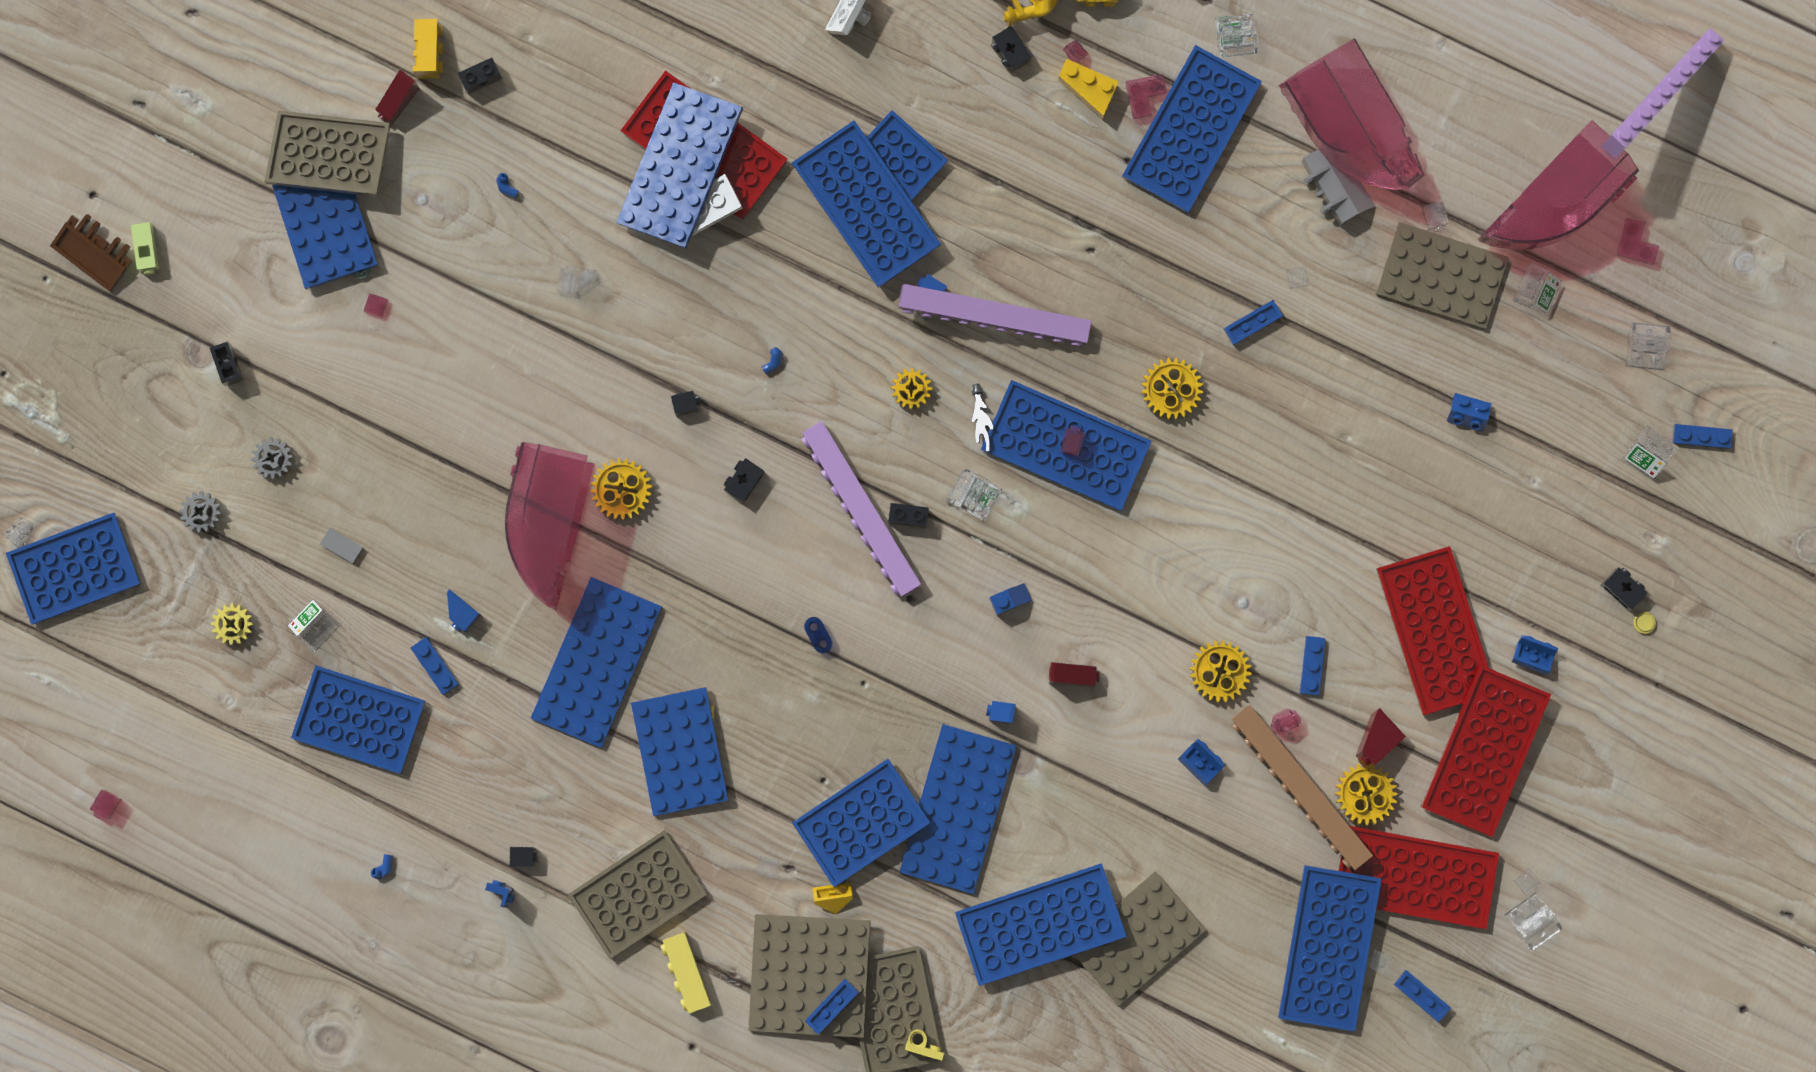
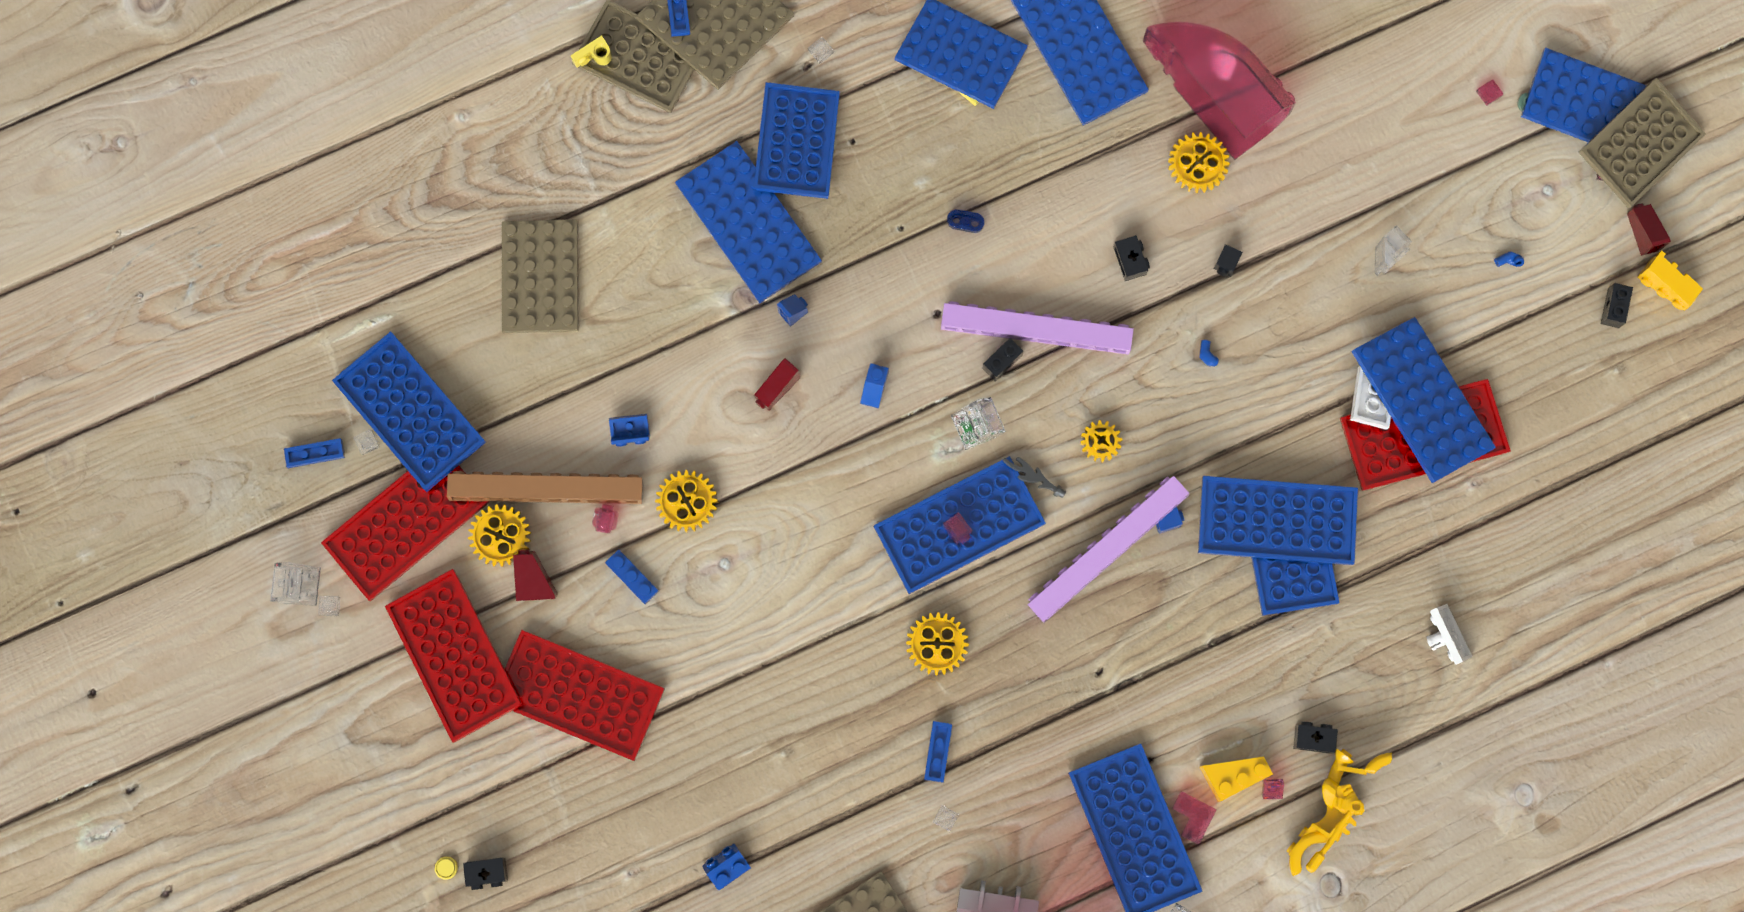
camera: 130 degrees right, 5 degrees down
(833, 898) = (758, 76): yellow slope -> none
(1040, 924) = (609, 211): blue plate -> none
(1534, 654) = (494, 756): blue bracket -> none

